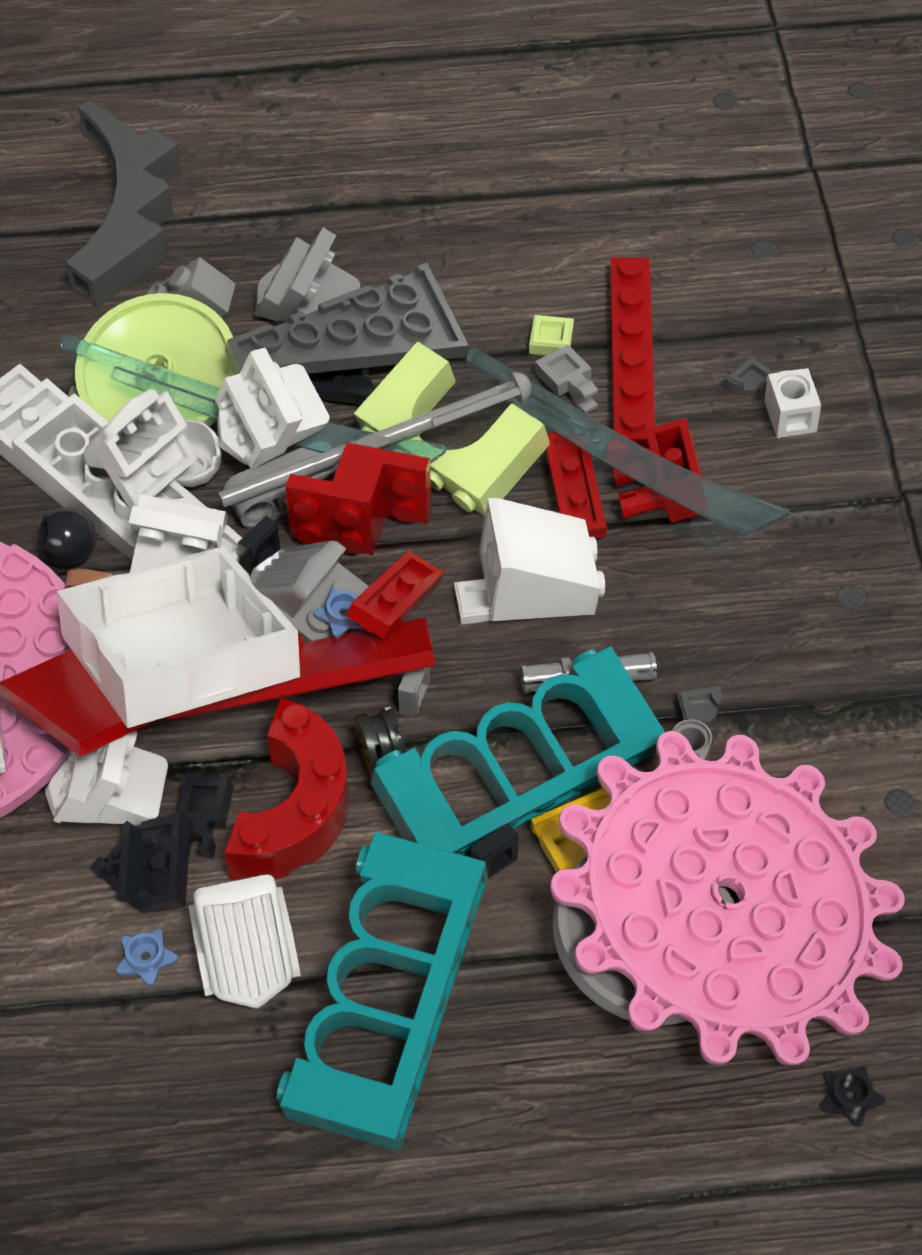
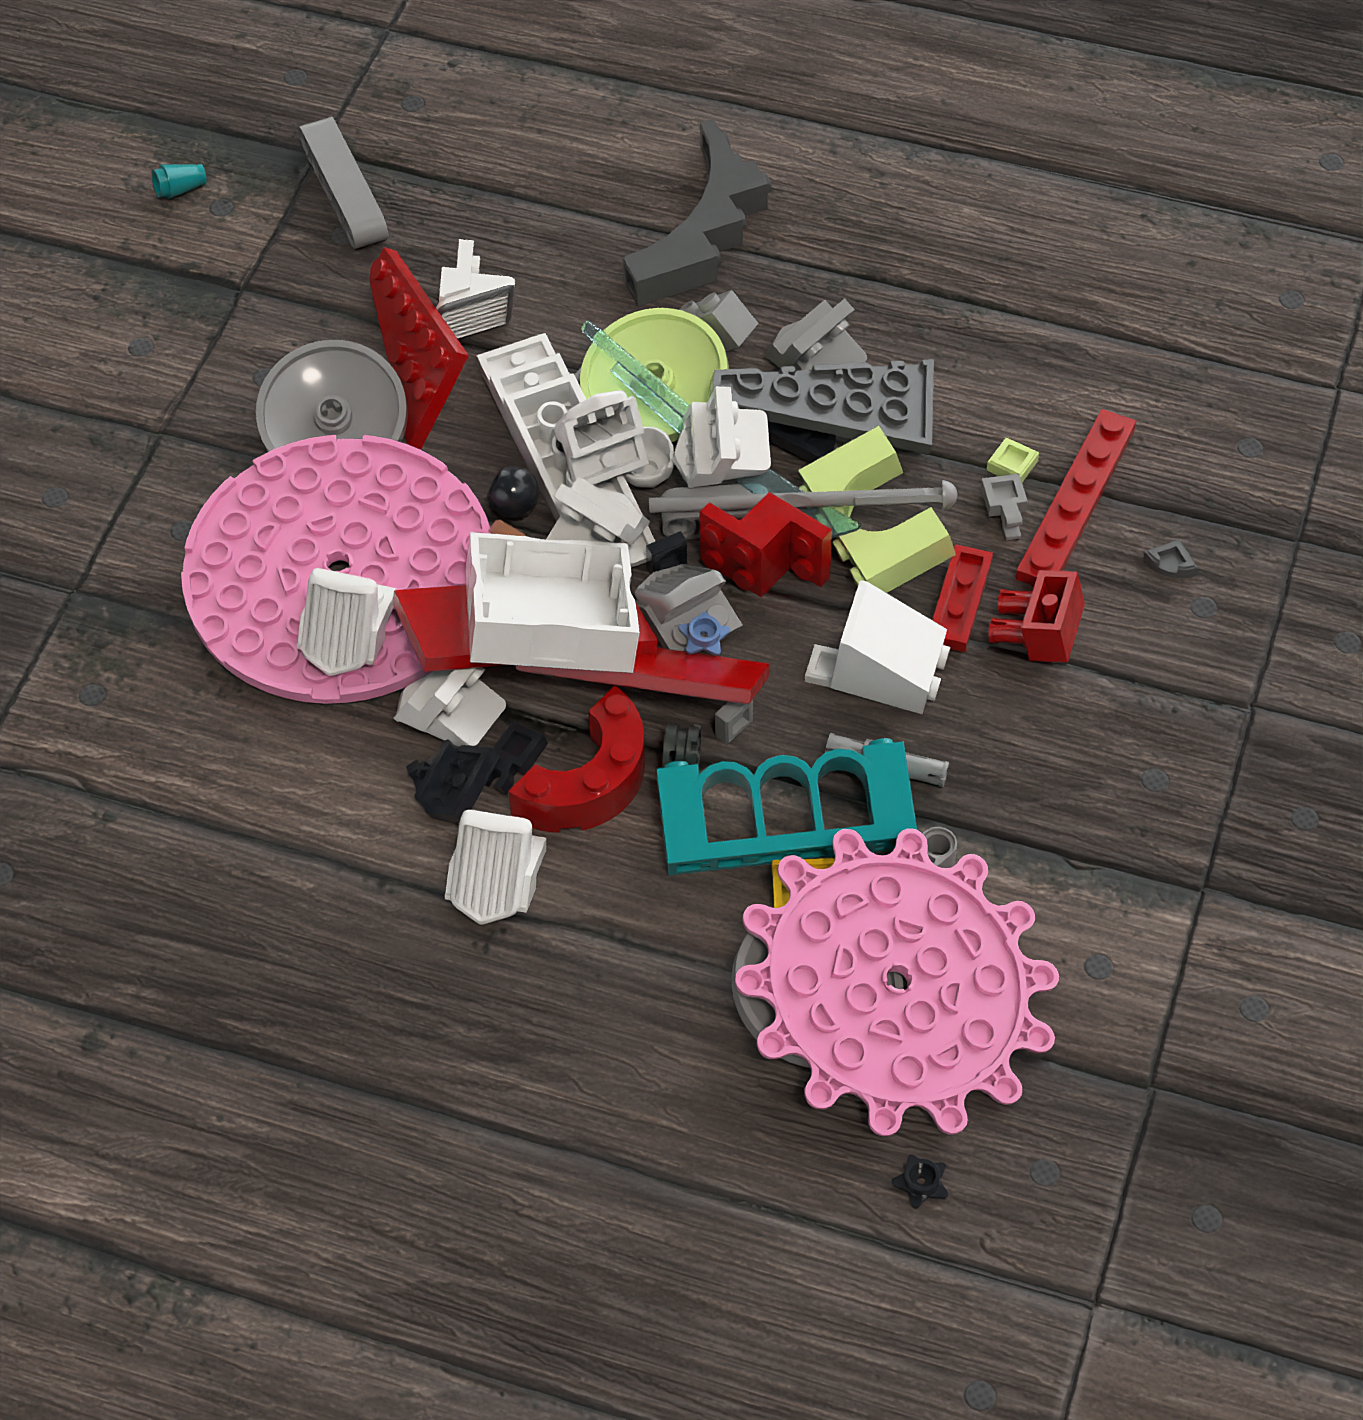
camera: 25 degrees right, 0 degrees up
(143, 944) = (416, 841): medium blue plate -> none
(357, 1105) = (627, 856): teal fence -> none
(395, 594) = (754, 635): red plate -> none
(497, 849) = (729, 876): black tile -> none
(699, 704) = (969, 823): dark grey tile -> none
(708, 498) = (1050, 641): clear light blue piece -> none
(792, 403) = (1192, 593): white brick -> none

